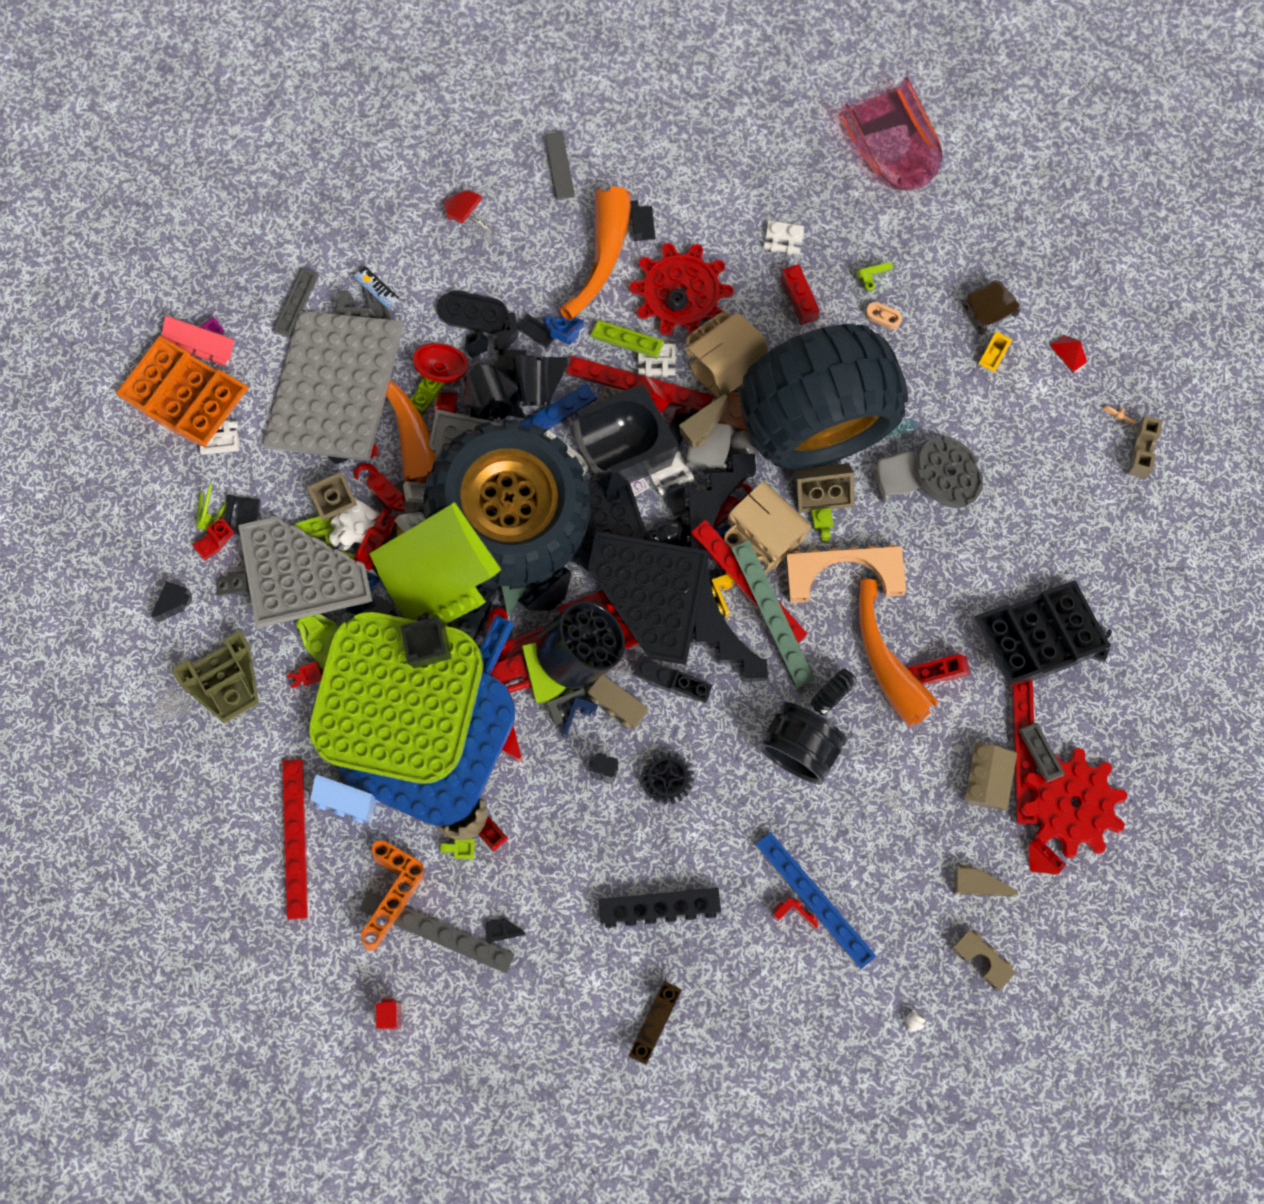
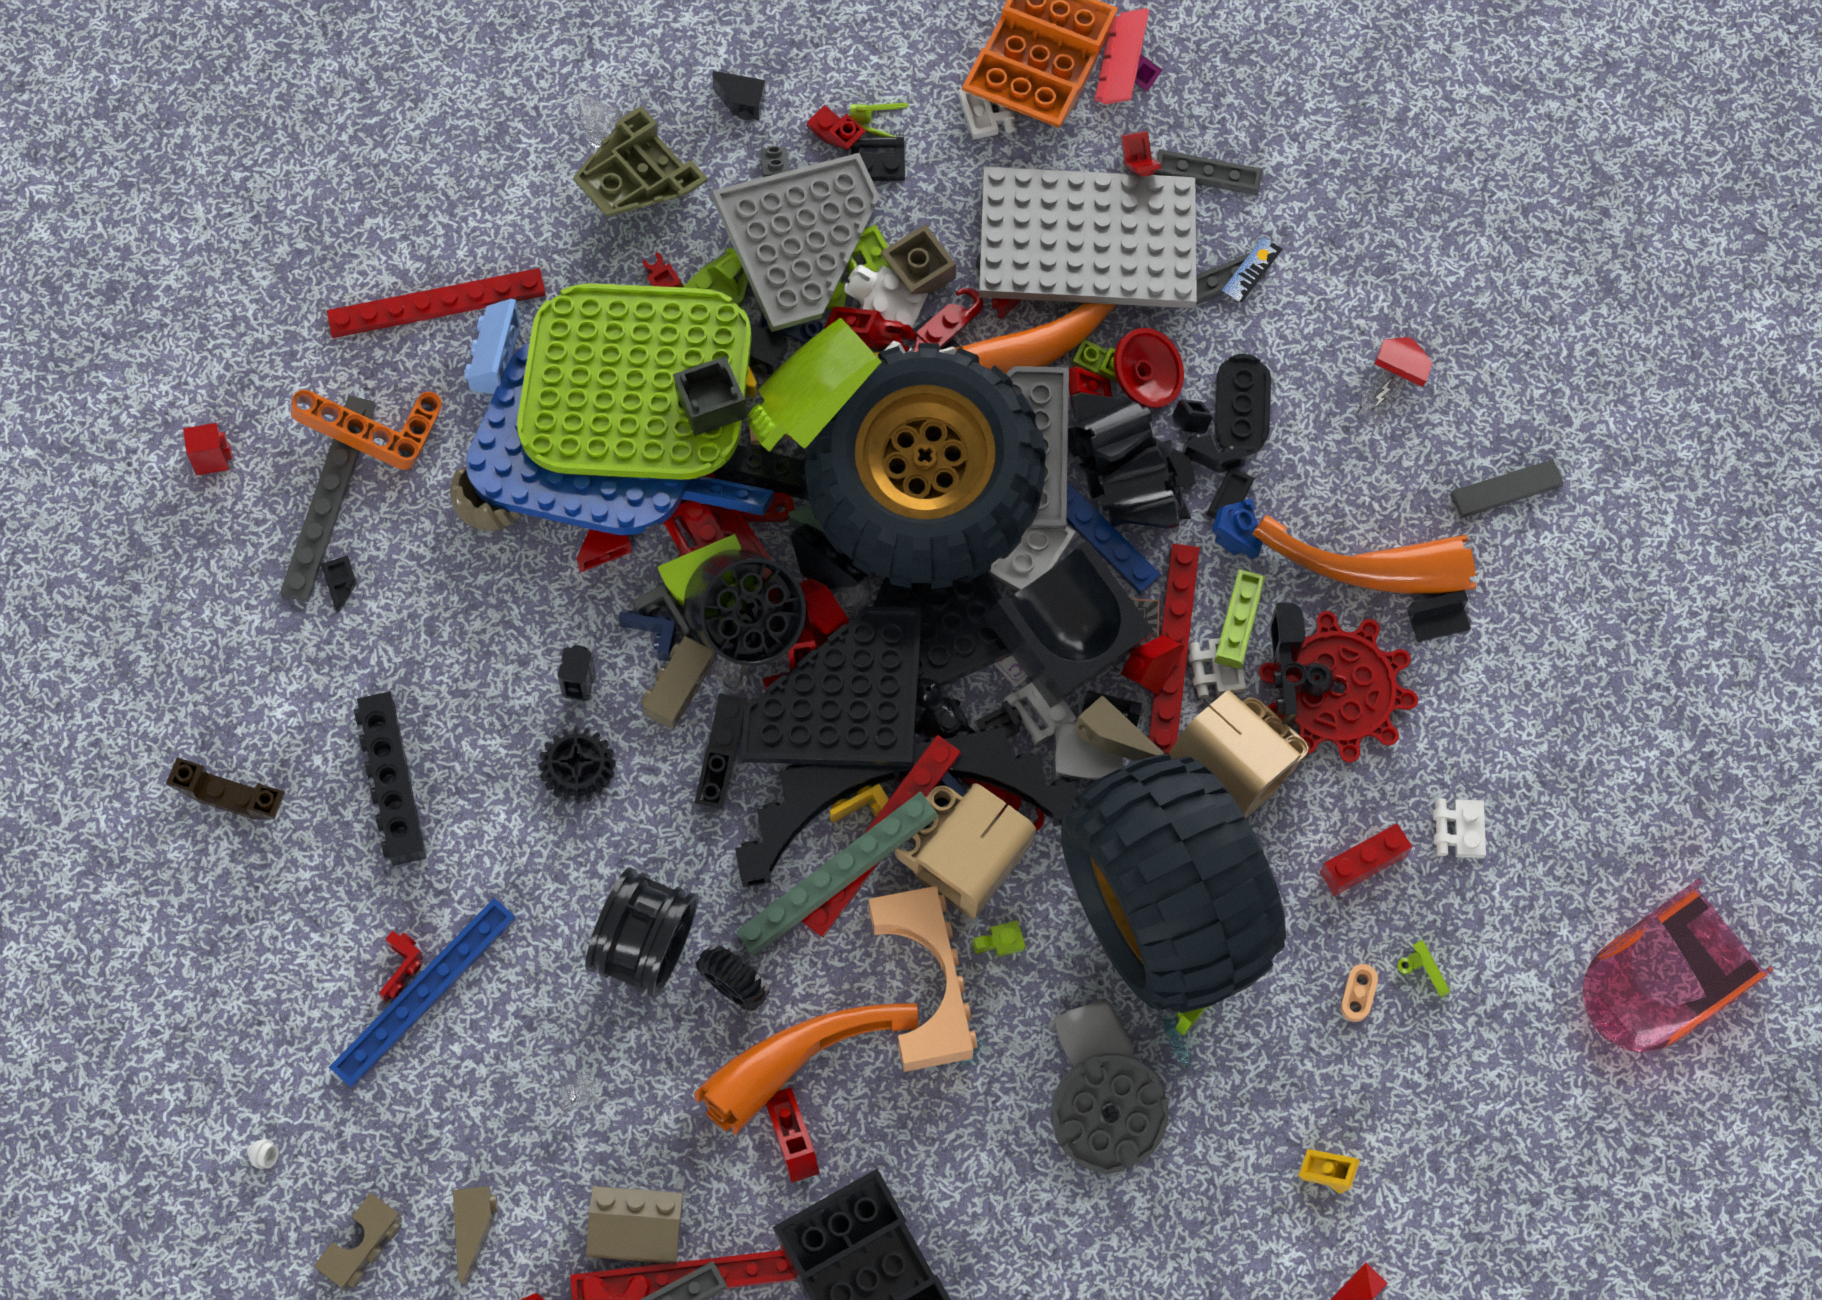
camera: 80 degrees right, 5 degrees down
(277, 344) = (1138, 153): none -> red bracket
(346, 306) = (1212, 234): dark grey bracket -> none
(462, 849) = (441, 509): lime plate -> none
(492, 835) = (465, 543): red slope -> none
(585, 593) = (822, 607): none -> red slope
(649, 309) = (1287, 641): none -> black plate
(824, 487) = (1055, 932): dark tan slope -> none
(990, 305) = (1409, 1153): dark brown piece -> none

